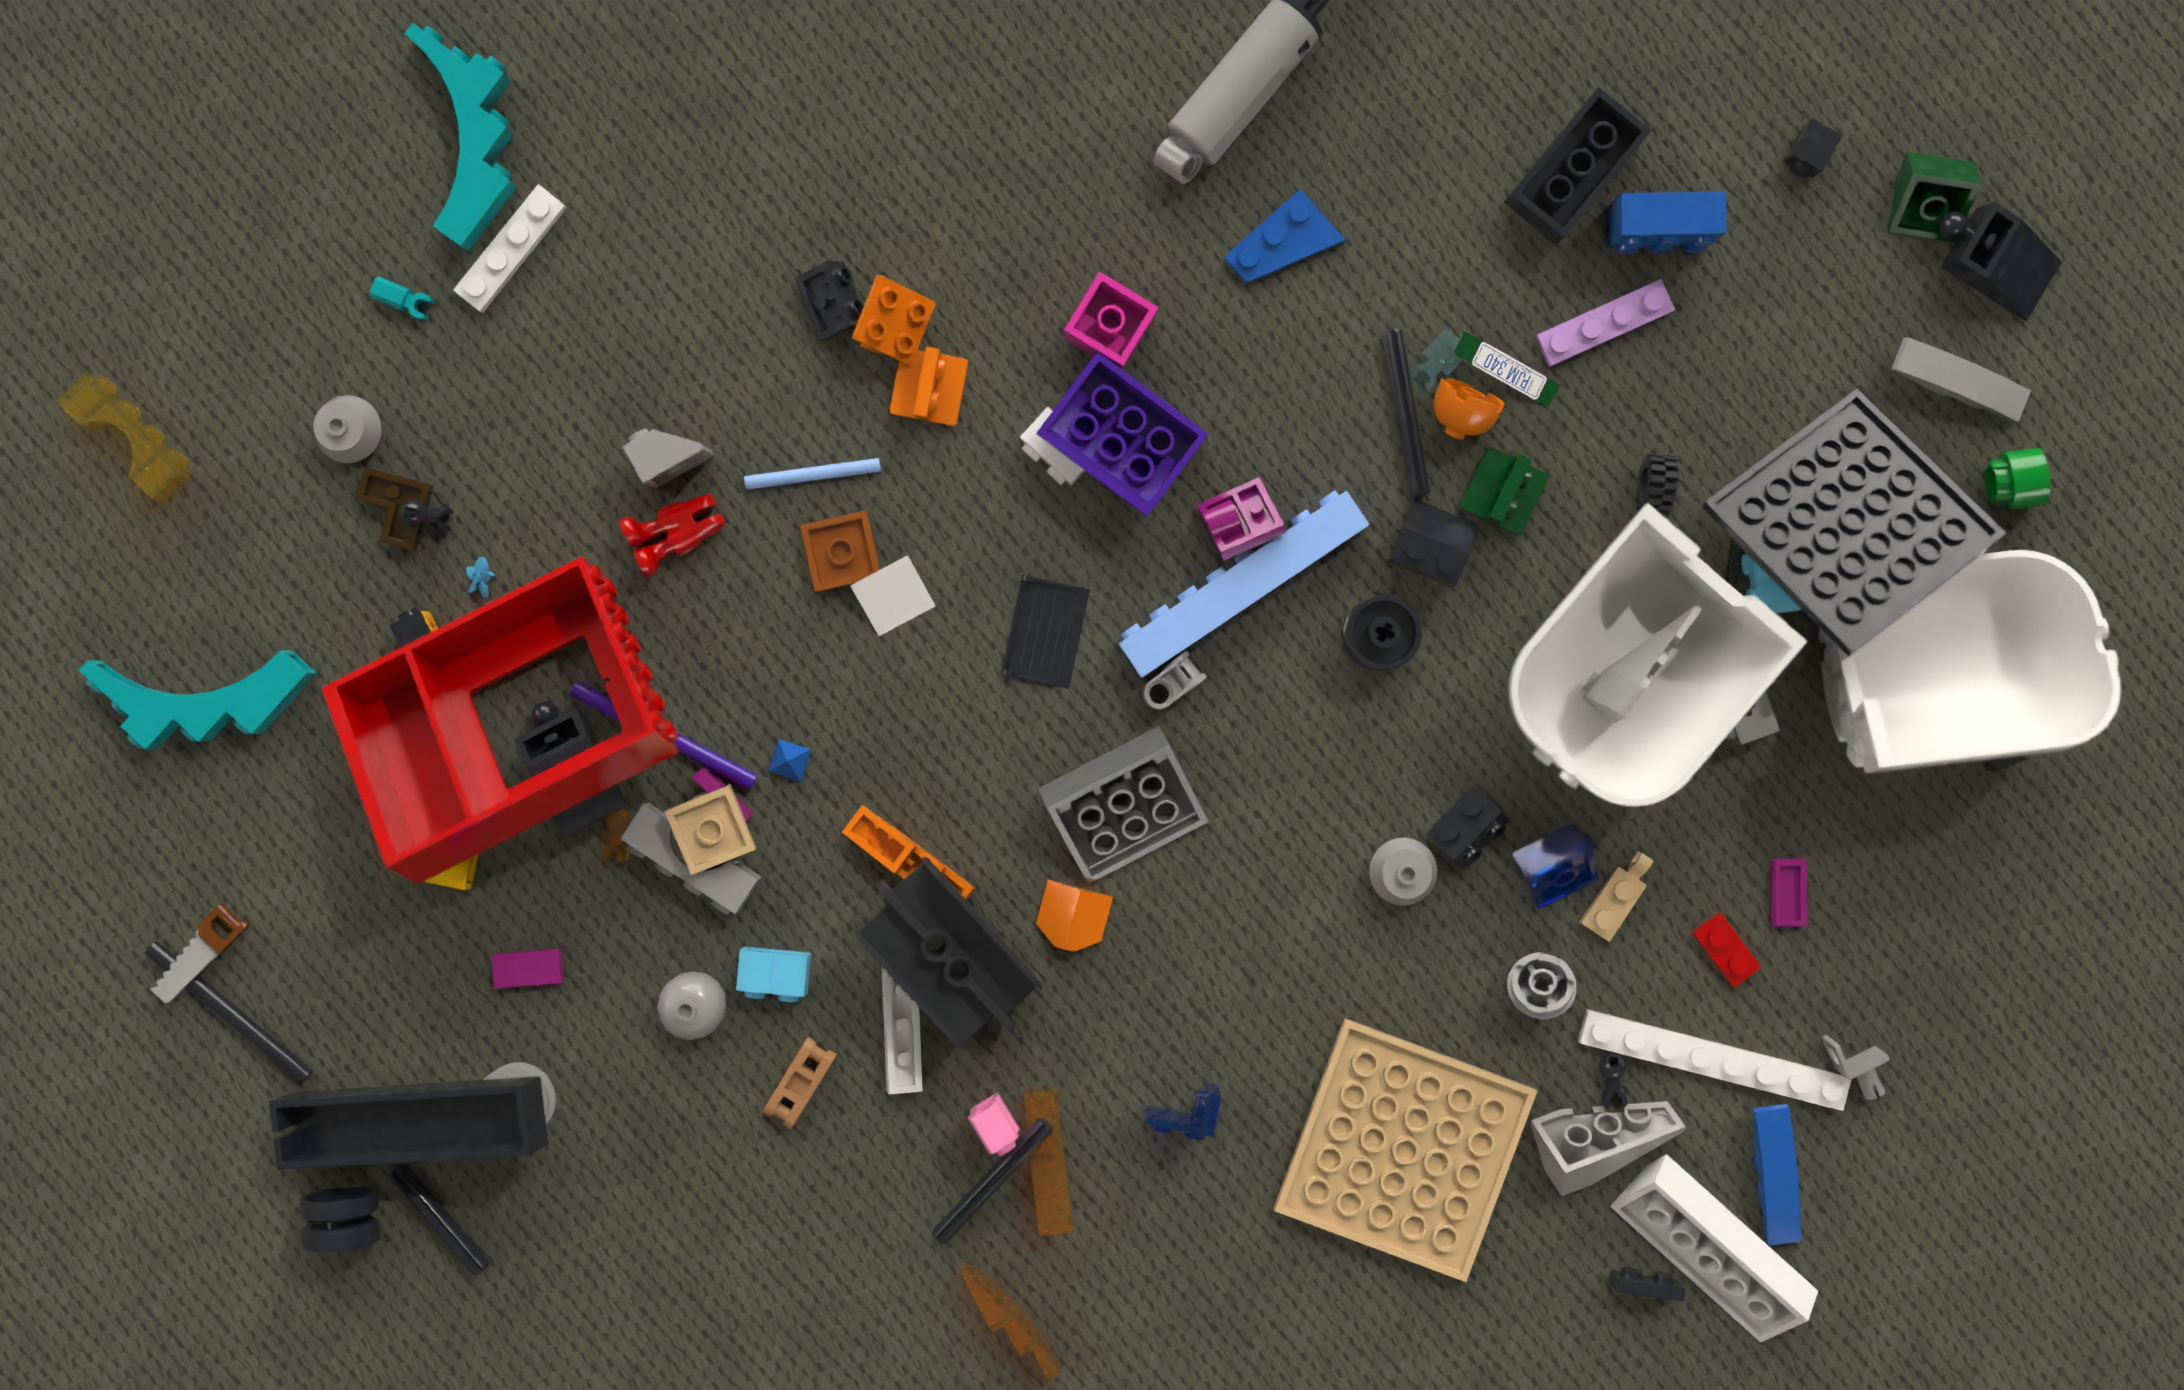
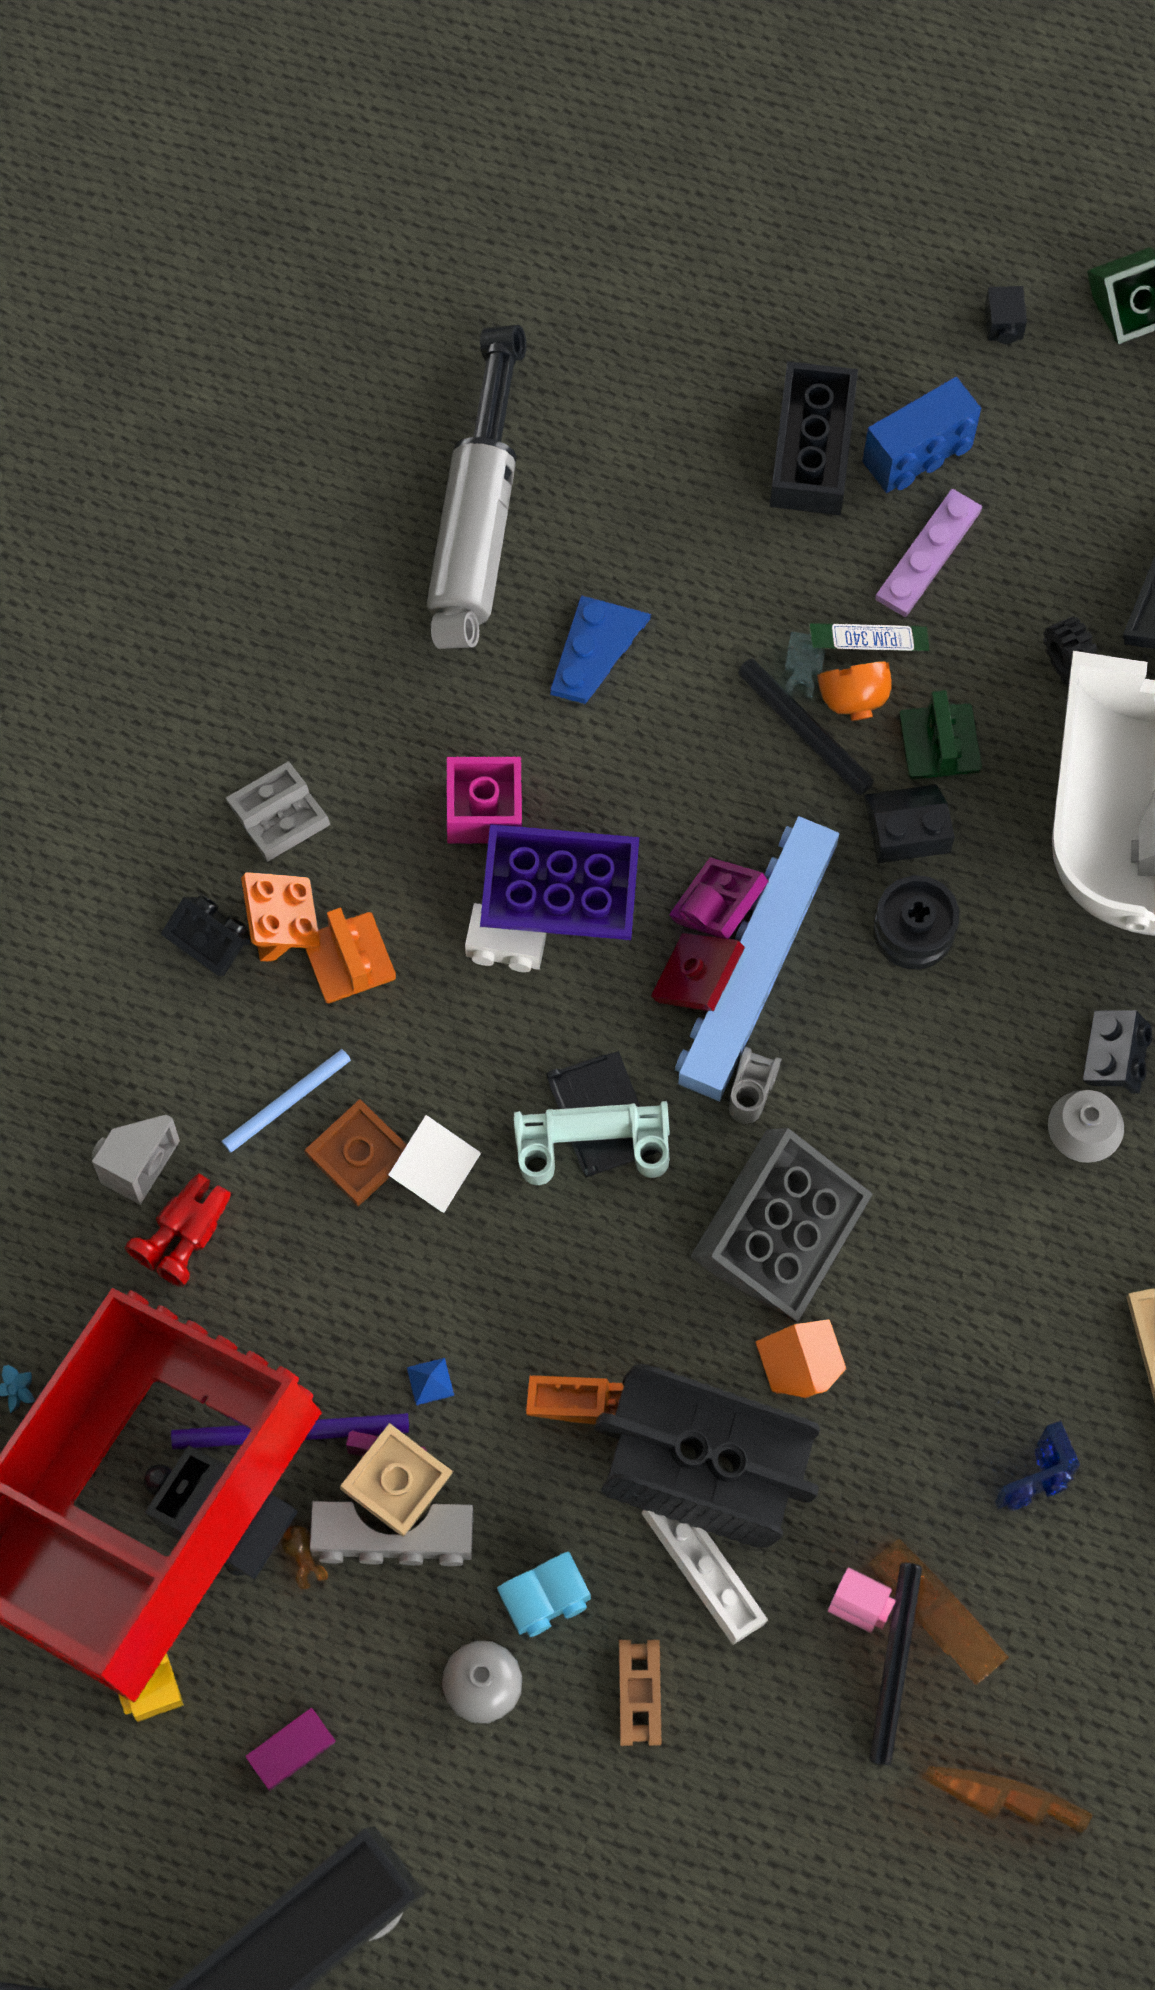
camera: 30 degrees left, 20 degrees down
(947, 228) = (278, 811): none -> light grey slope
(1029, 641) = (538, 1133): none -> light aqua piece
(1187, 568) = (697, 971): none -> dark red plate

